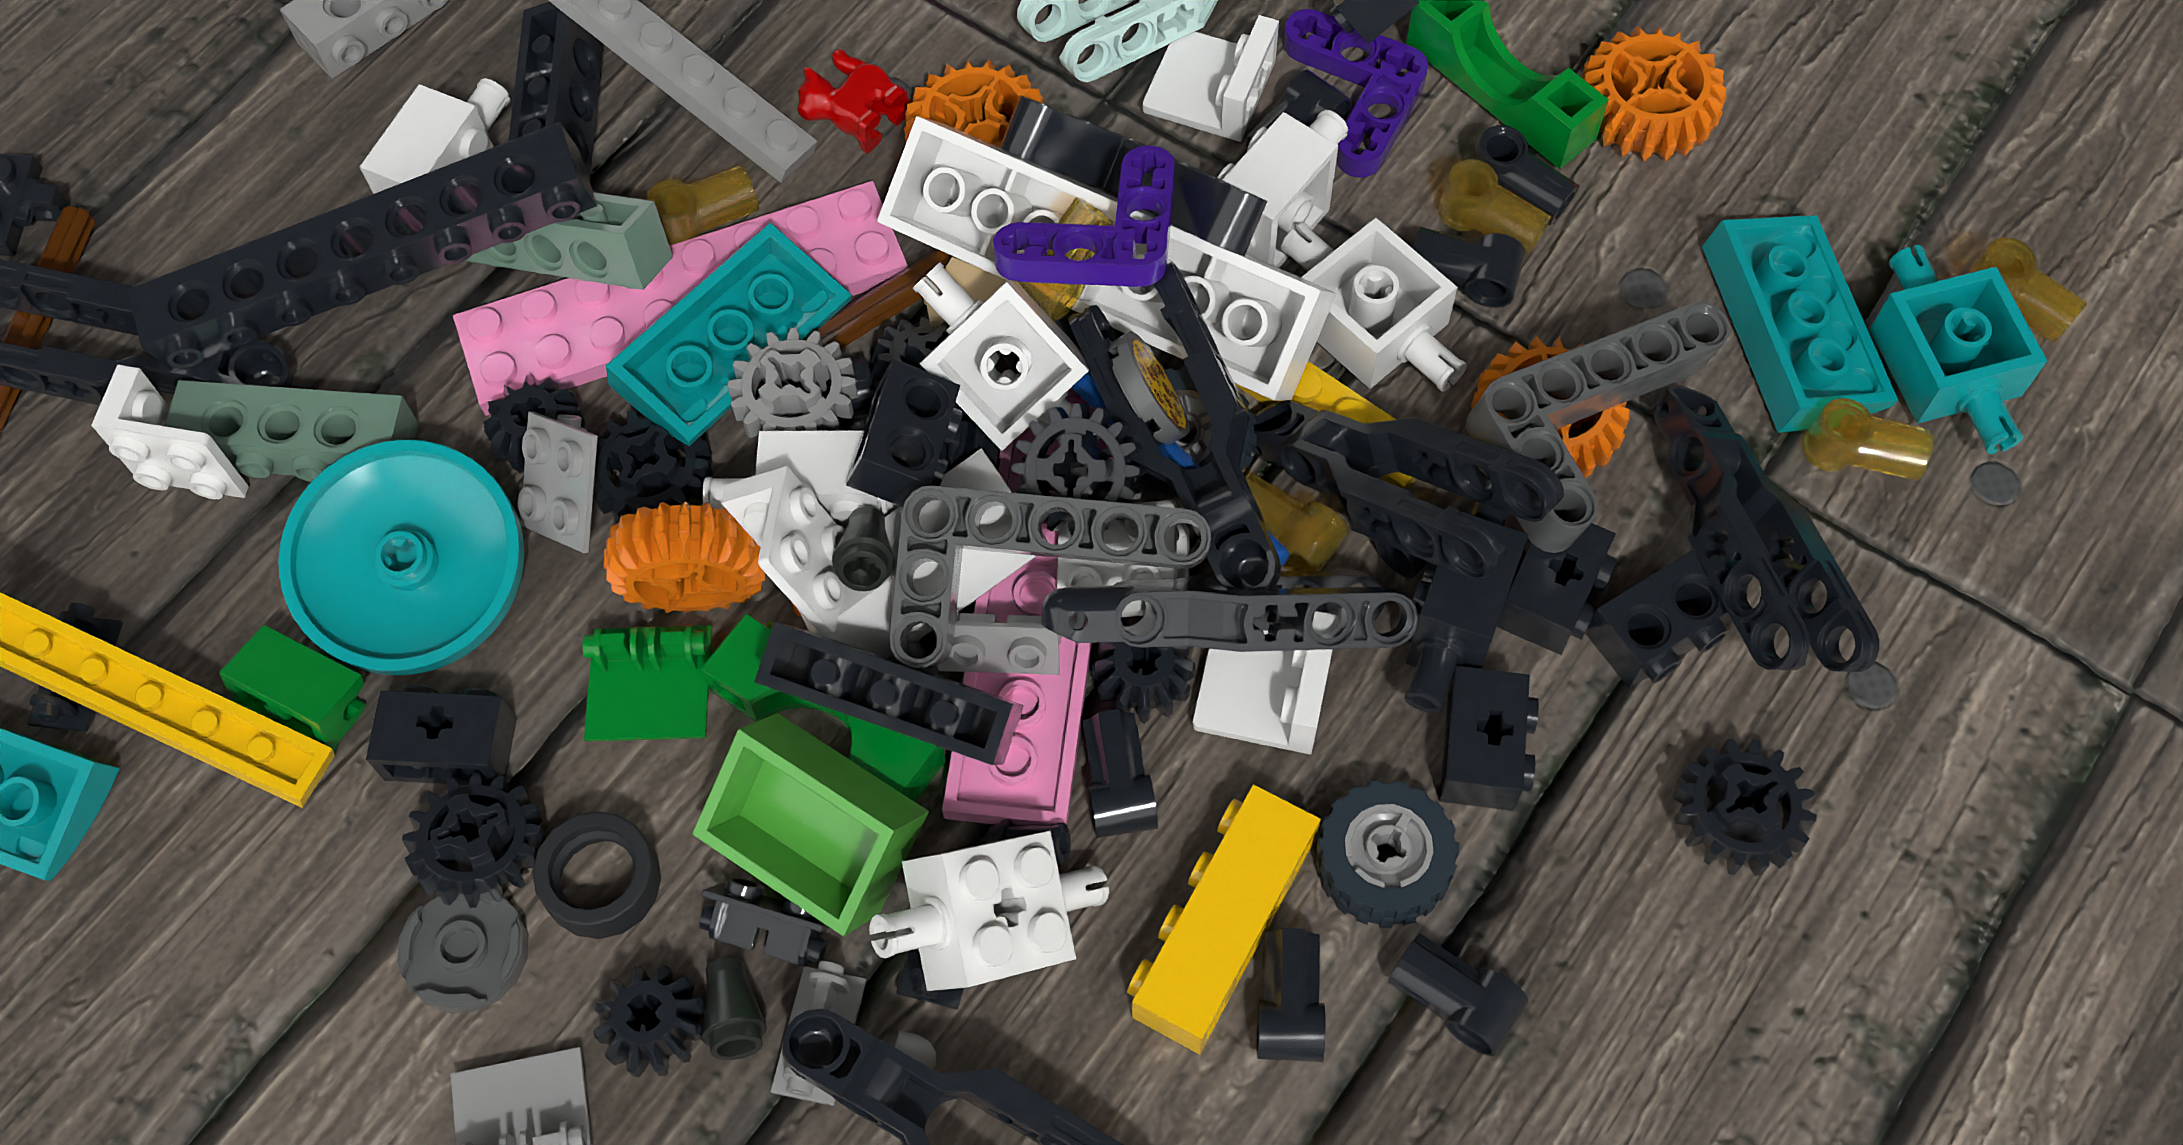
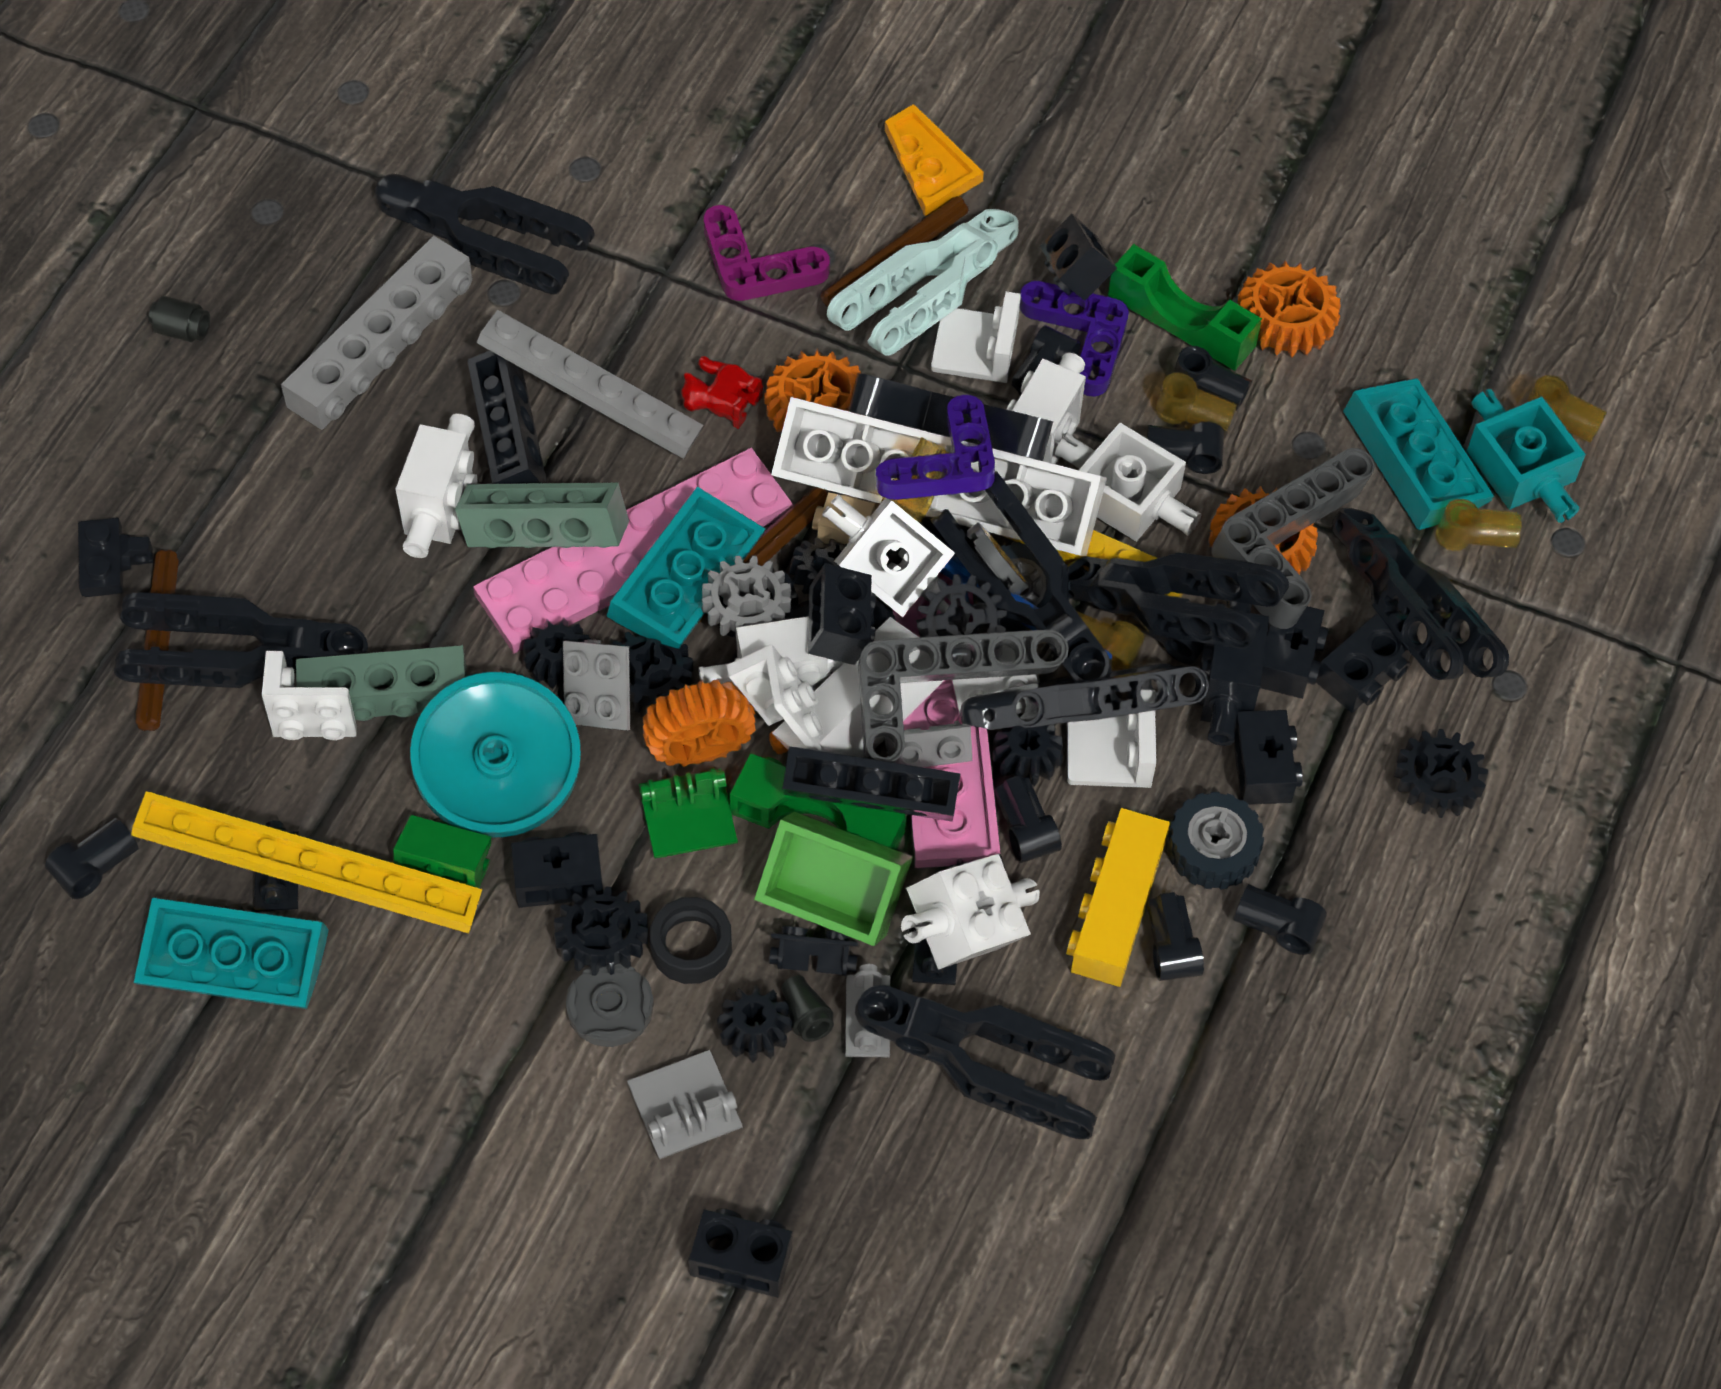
camera: 15 degrees left, 5 degrees down
(362, 248) = (428, 524): black brick -> none
(702, 204) = (639, 477): clear yellow piece -> none
(864, 553) = (830, 696): pearl dark grey cone -> none

